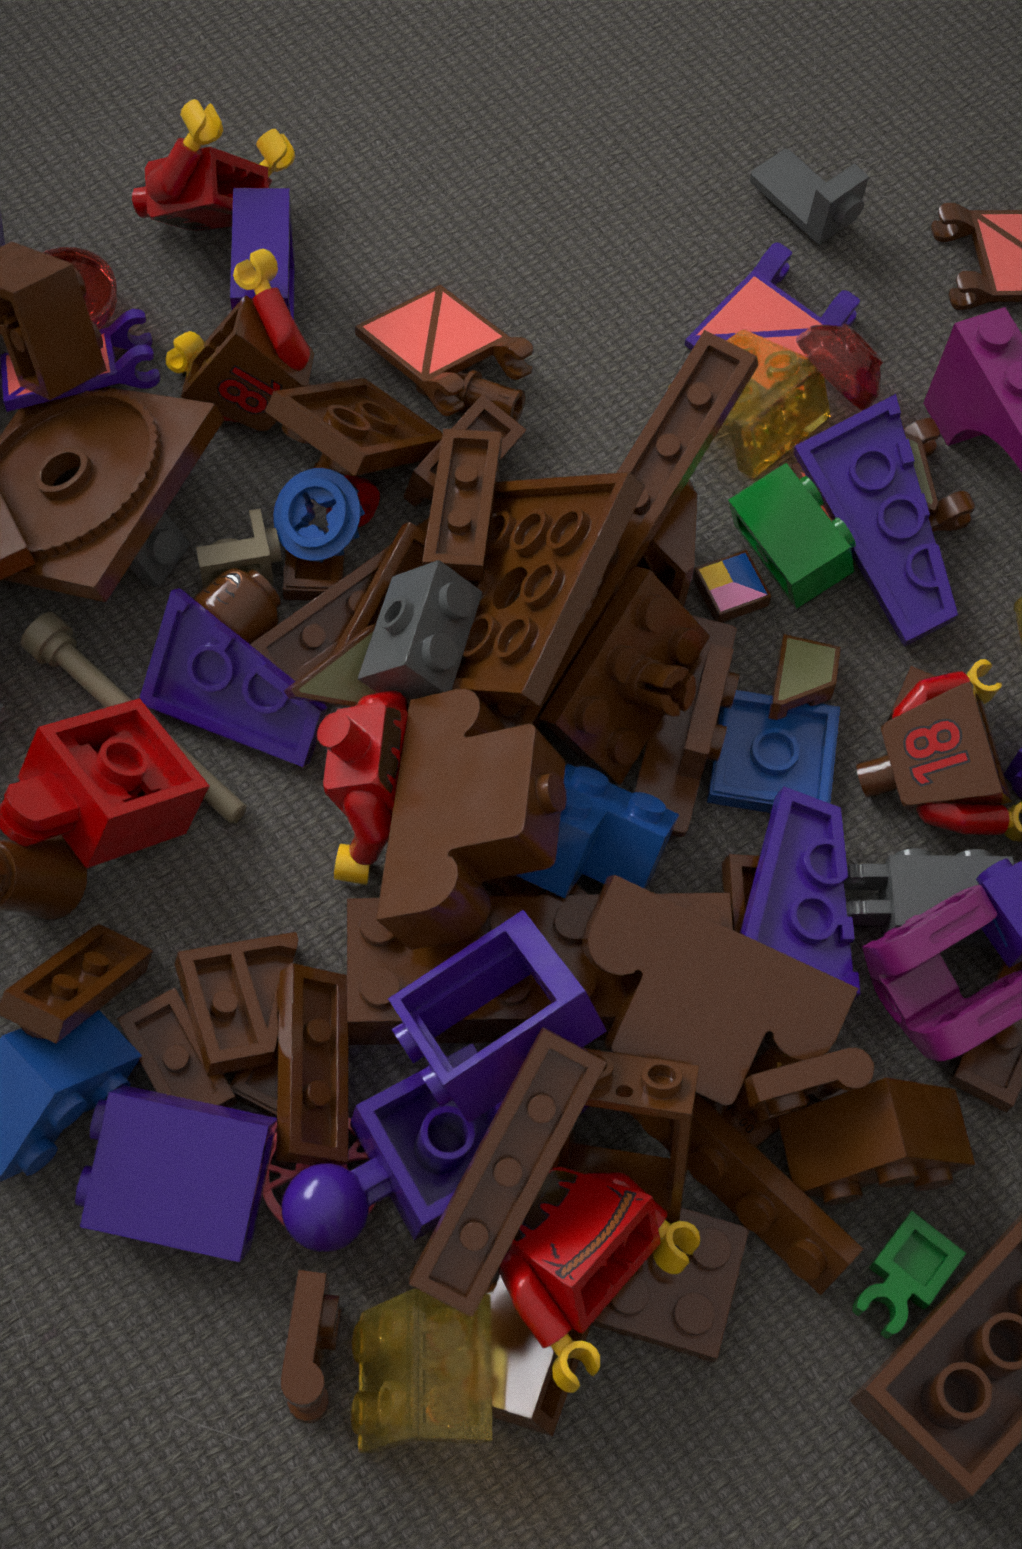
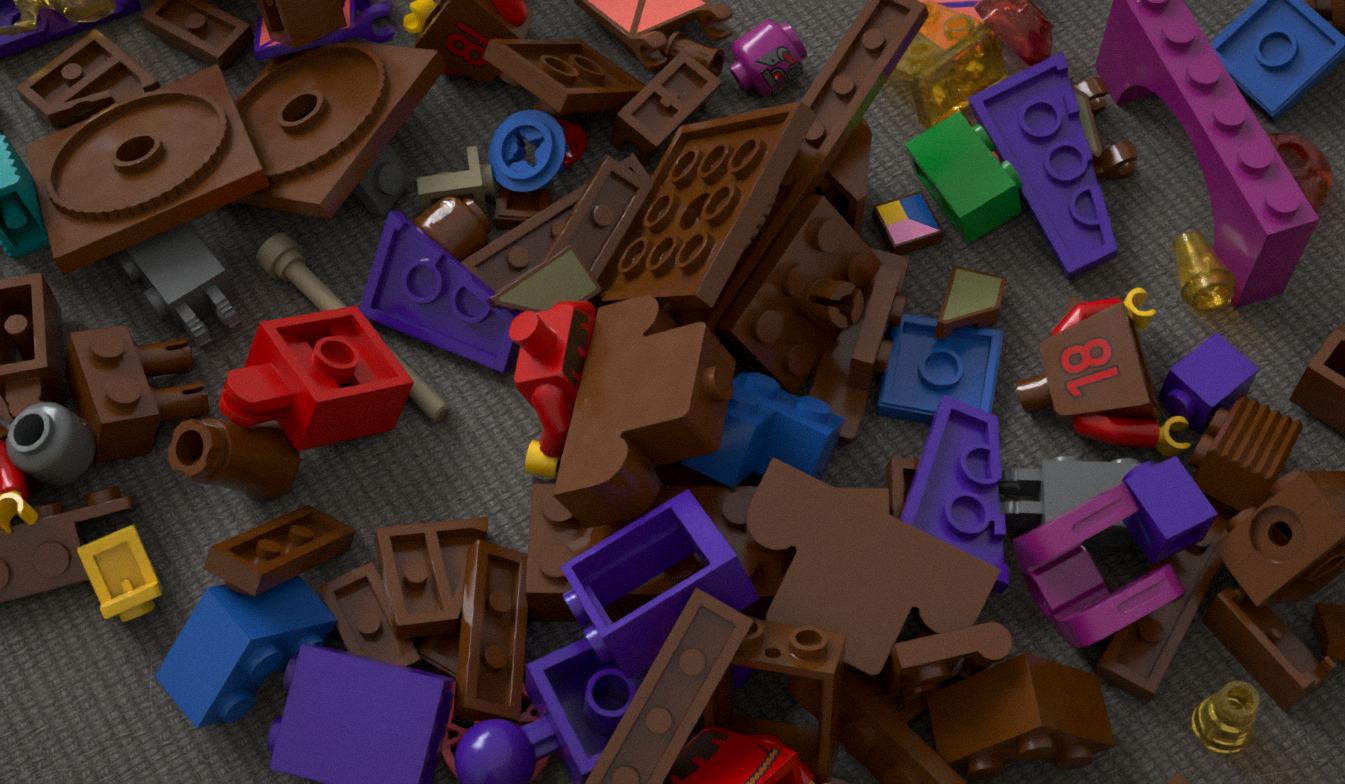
camera: 10 degrees right, 5 degrees down
(421, 632) = (612, 248): dark grey brick -> none
(464, 501) = (657, 141): reddish brown plate -> none
(573, 399) = (767, 58): none -> magenta head

